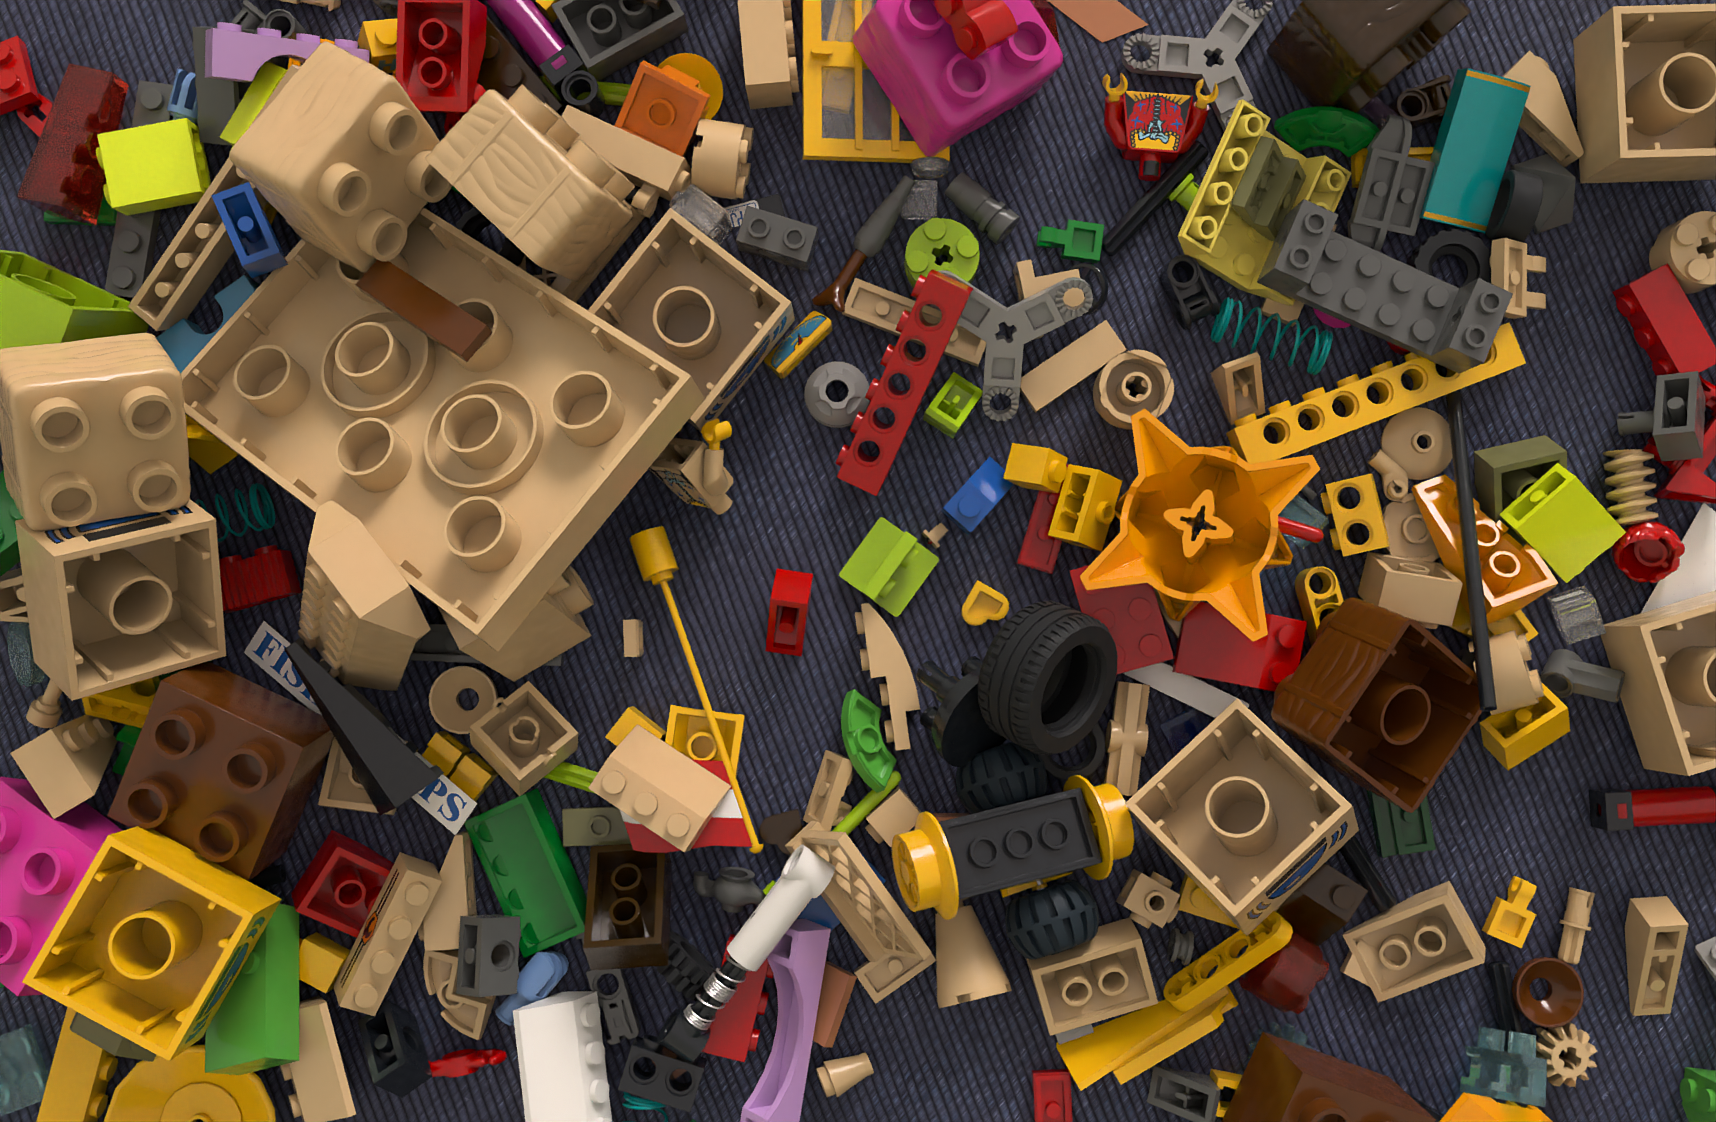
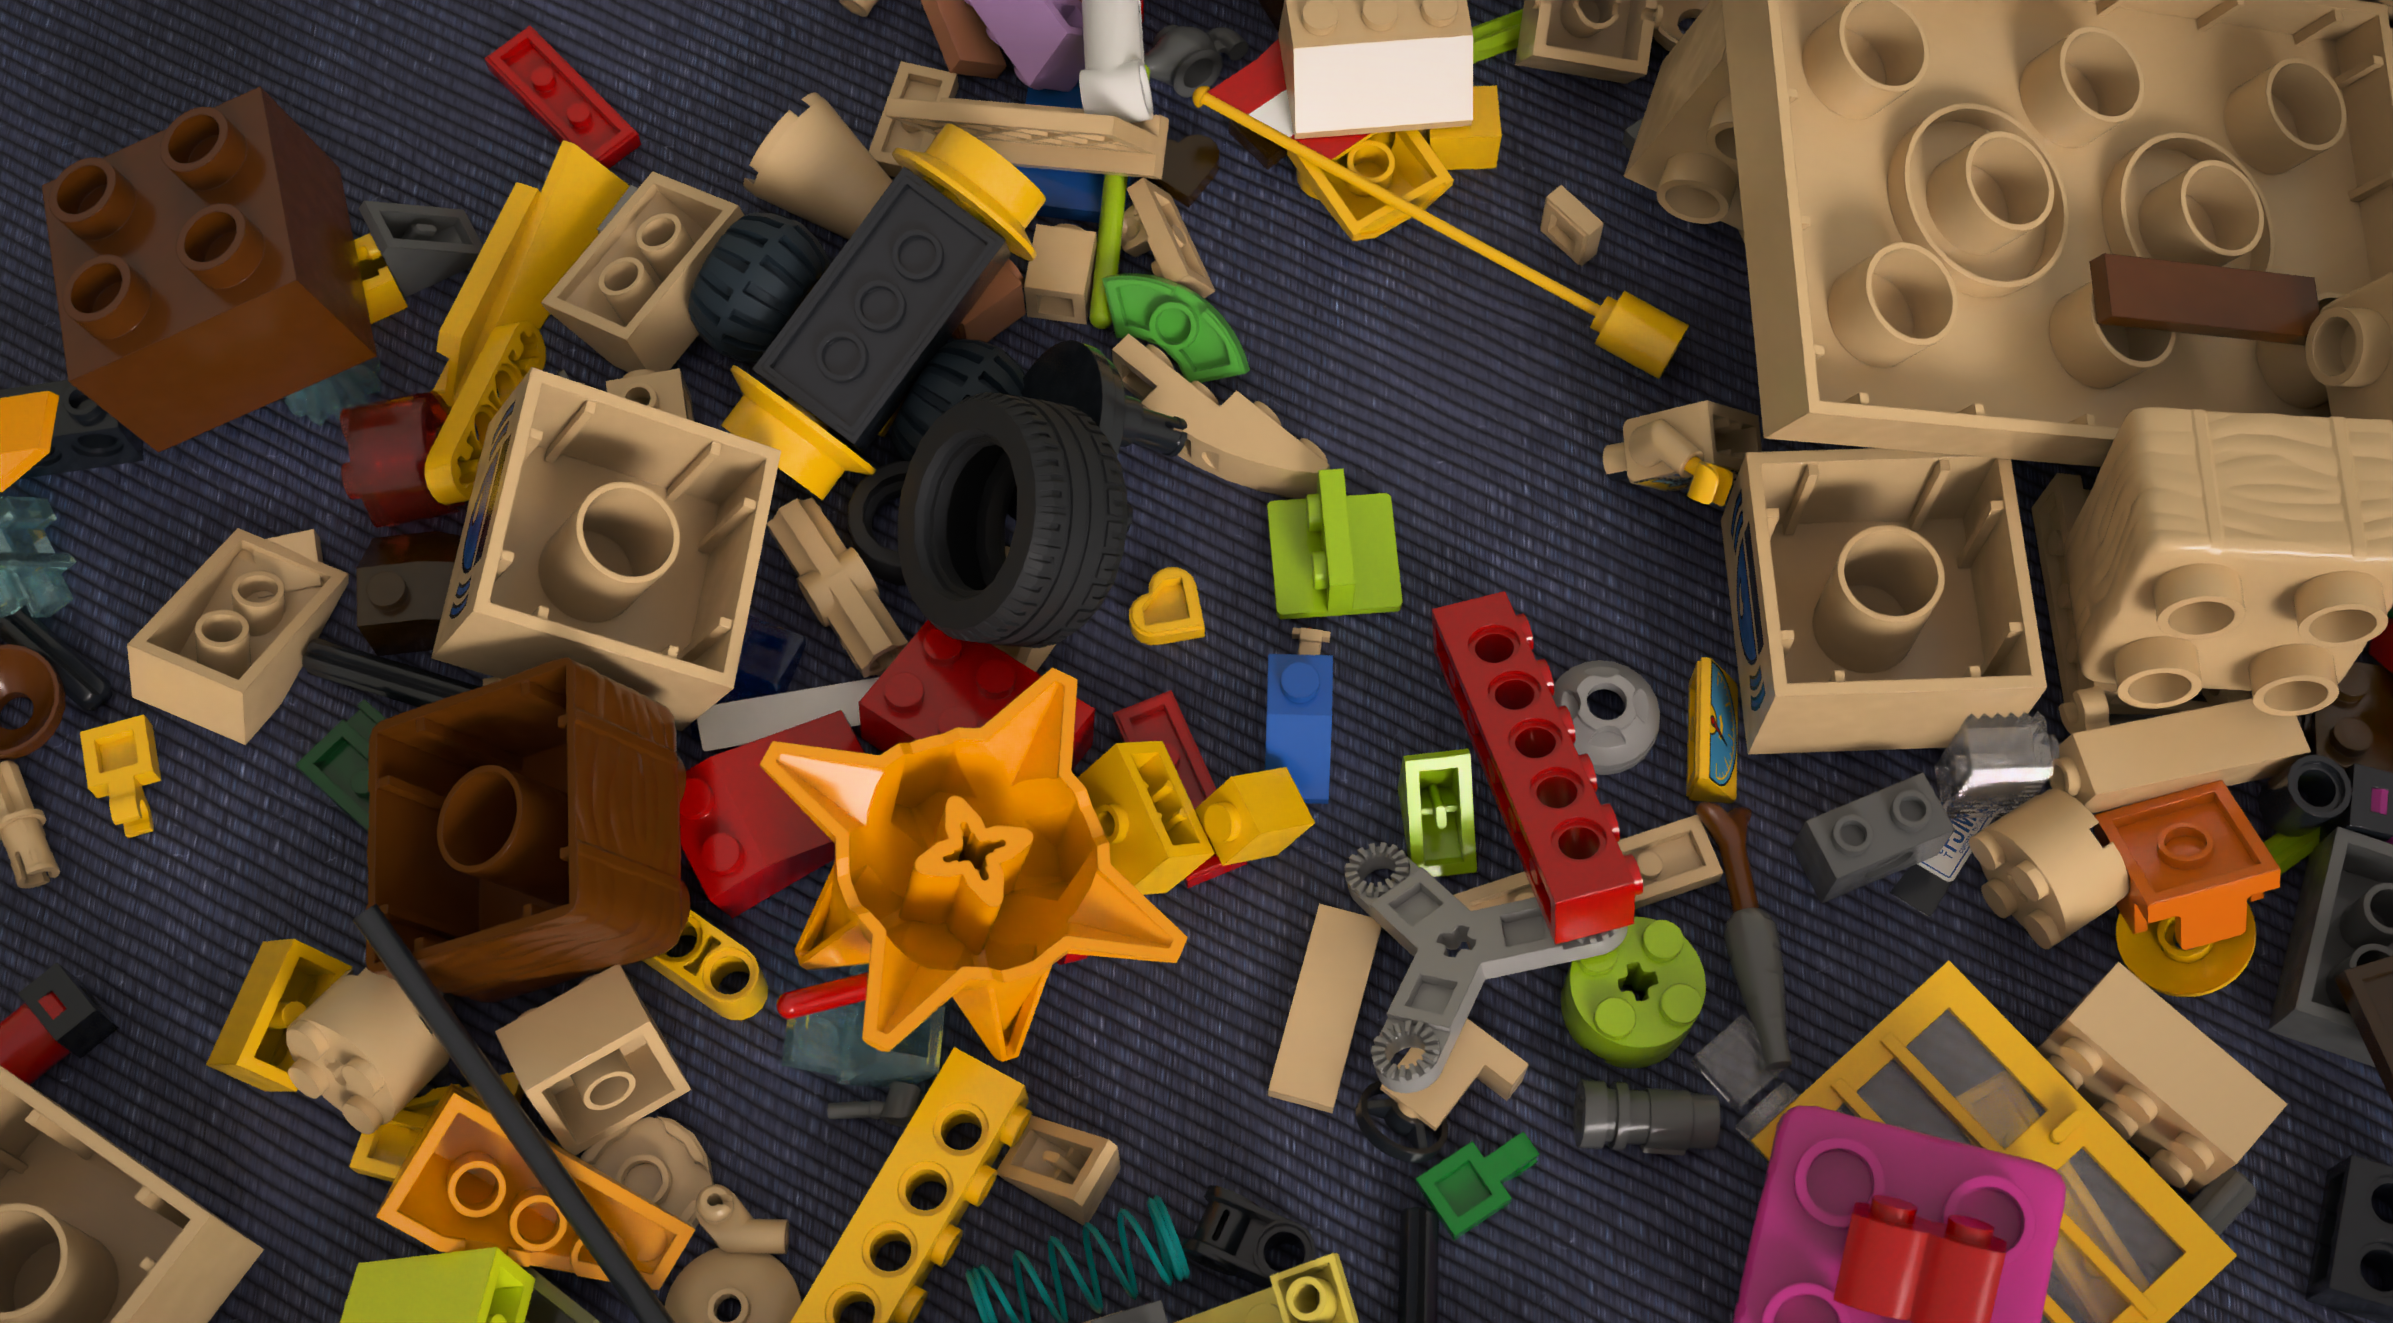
camera: 140 degrees right, 20 degrees down
(788, 612) = (1413, 401): red slope -> none
(1151, 381) = (1235, 999): tan brick -> none
(1366, 512) = (736, 1127): yellow brick -> none
(1568, 674) = (260, 1141): dark grey piece -> none
(1576, 615) = (310, 1230): clear brick -> none

